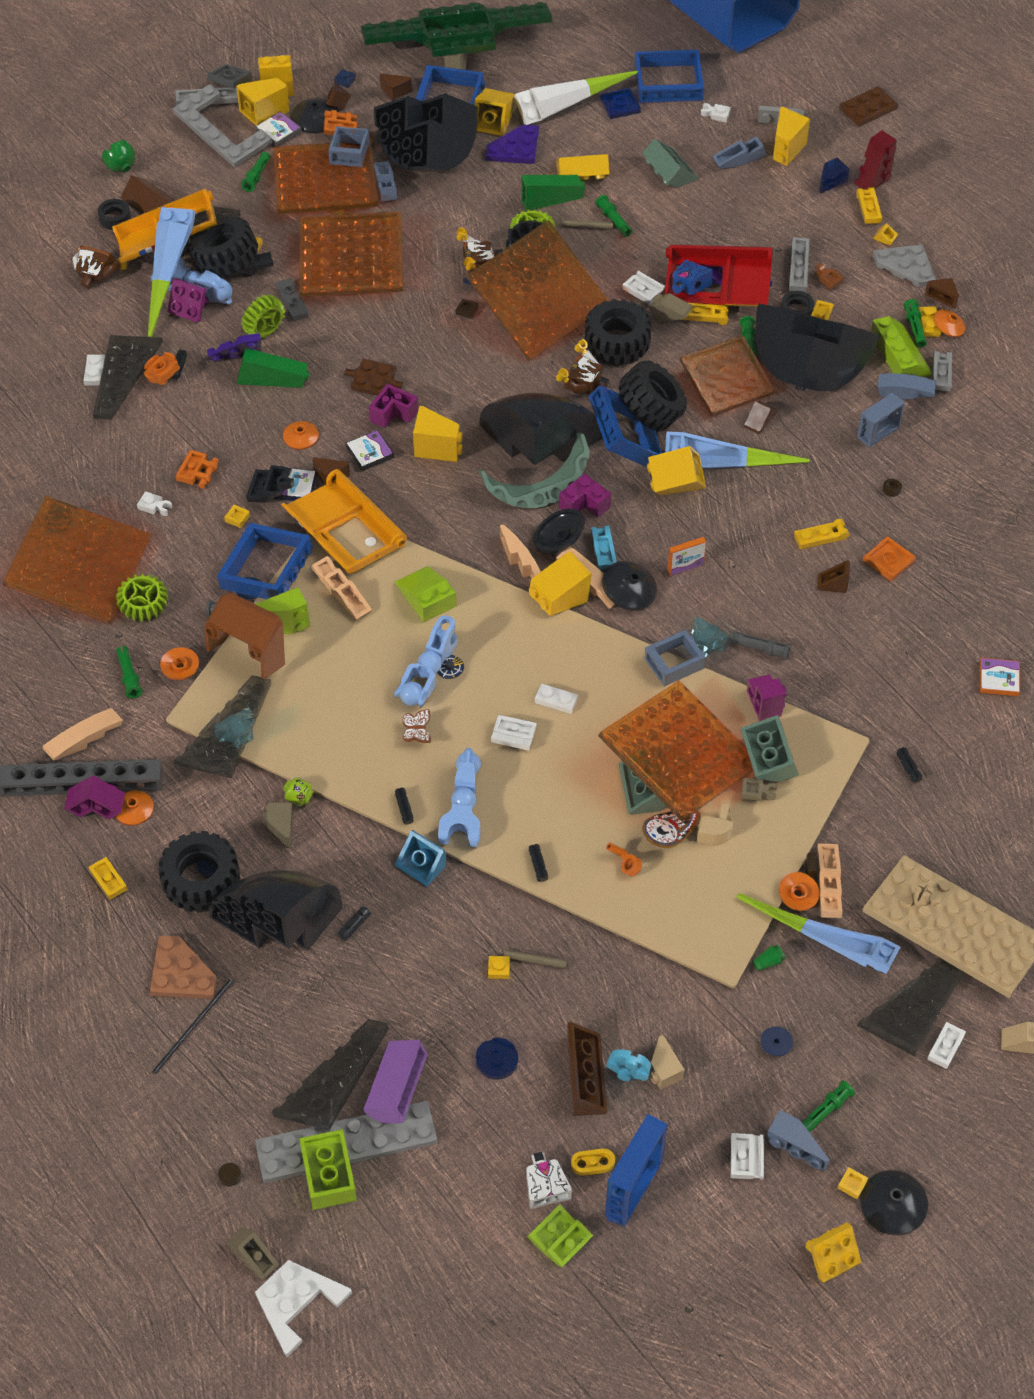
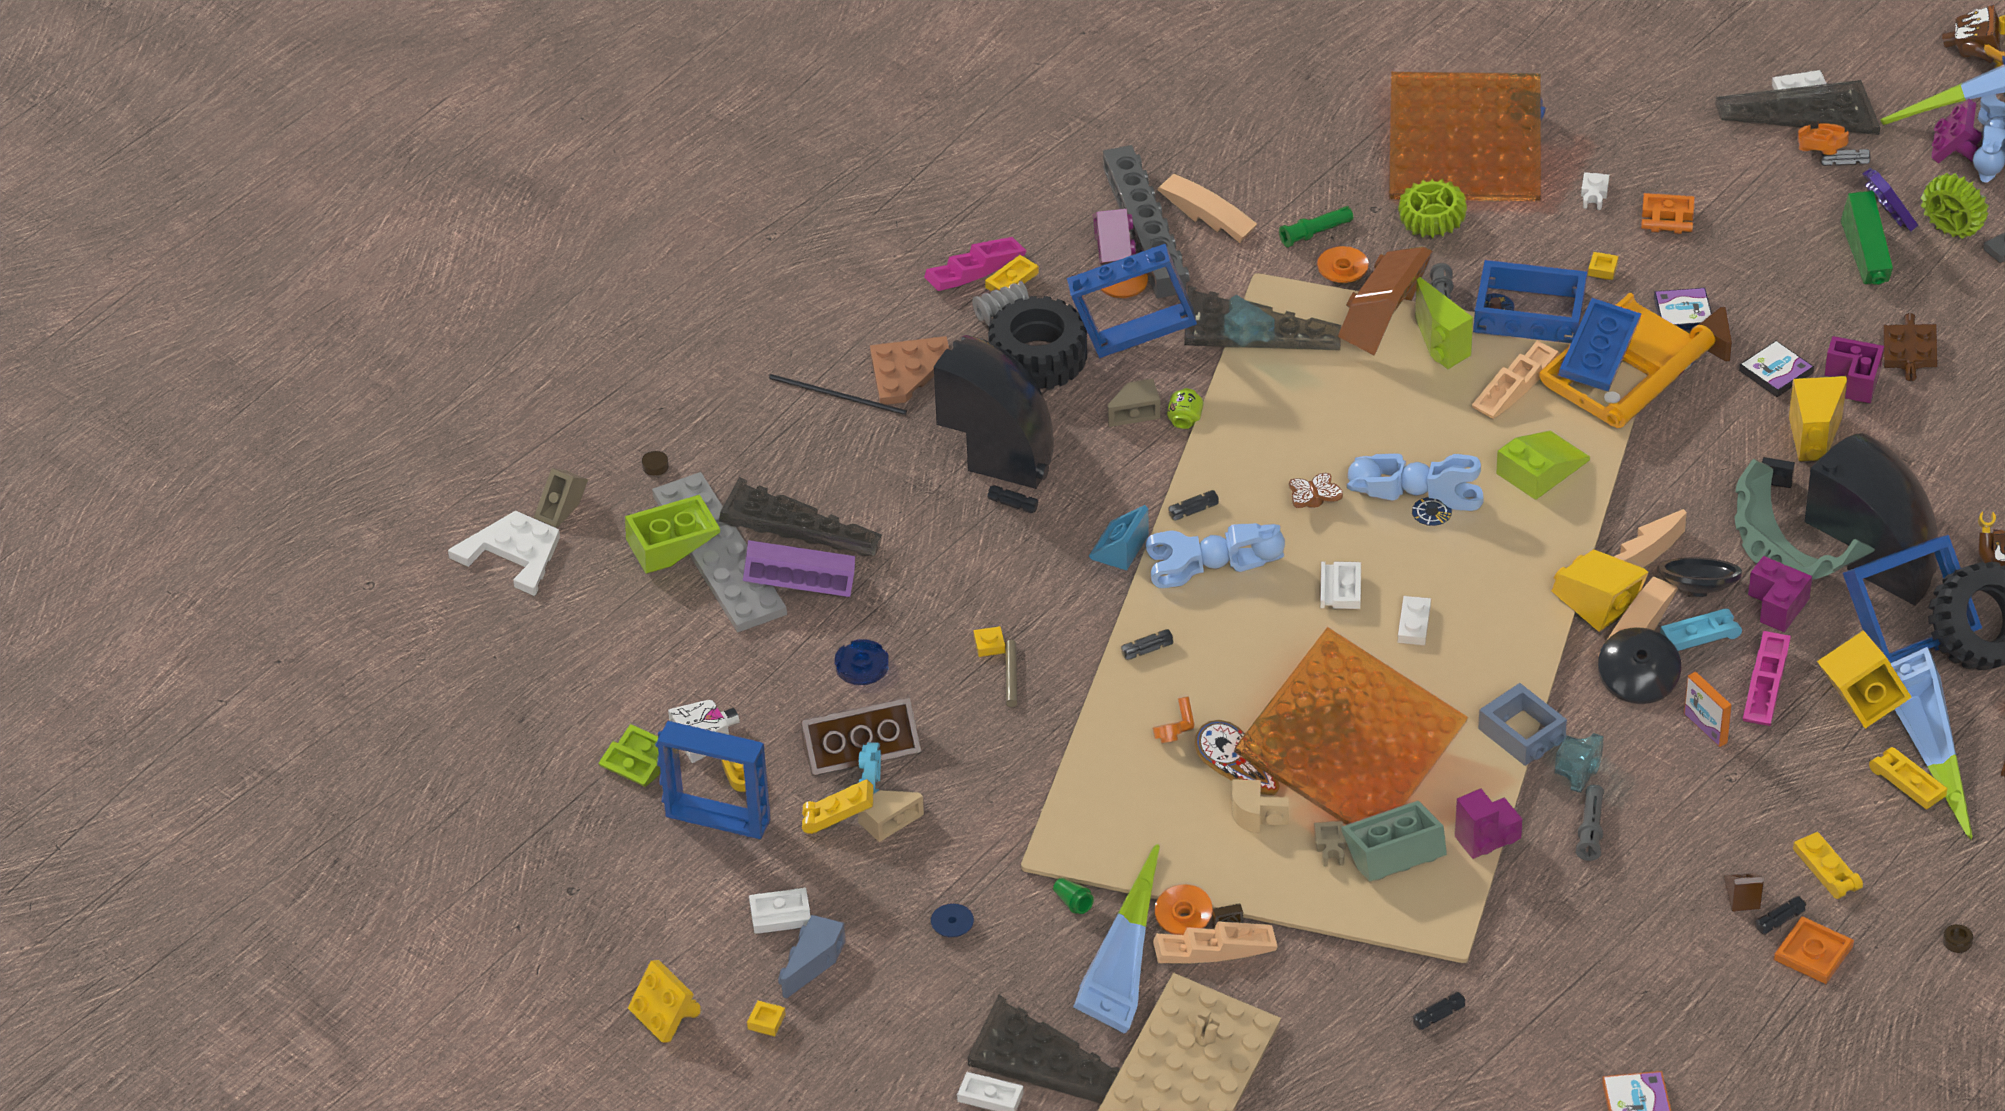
camera: 80 degrees right, 10 degrees down
(82, 901) = (980, 262): none -> dark pink slope
(140, 888) = (990, 304): none -> light grey piece
(202, 787) = (1140, 329): none -> blue window
(269, 484) = (1664, 278): black plate -> none
(300, 435) = (1776, 300): orange dish -> none
(334, 529) = (1599, 344): none -> blue plate
(471, 475) = (1782, 471): none -> black bracket
(654, 524) = (1766, 678): none -> dark pink slope
(659, 1090) = (837, 807): none -> yellow plate
(757, 475) = (1908, 777): none -> yellow plate
(833, 1101) = (877, 984): green pin -> none
(858, 567) = (1780, 915): none -> black axle
(891, 1214) = (752, 1068): black dish -> none

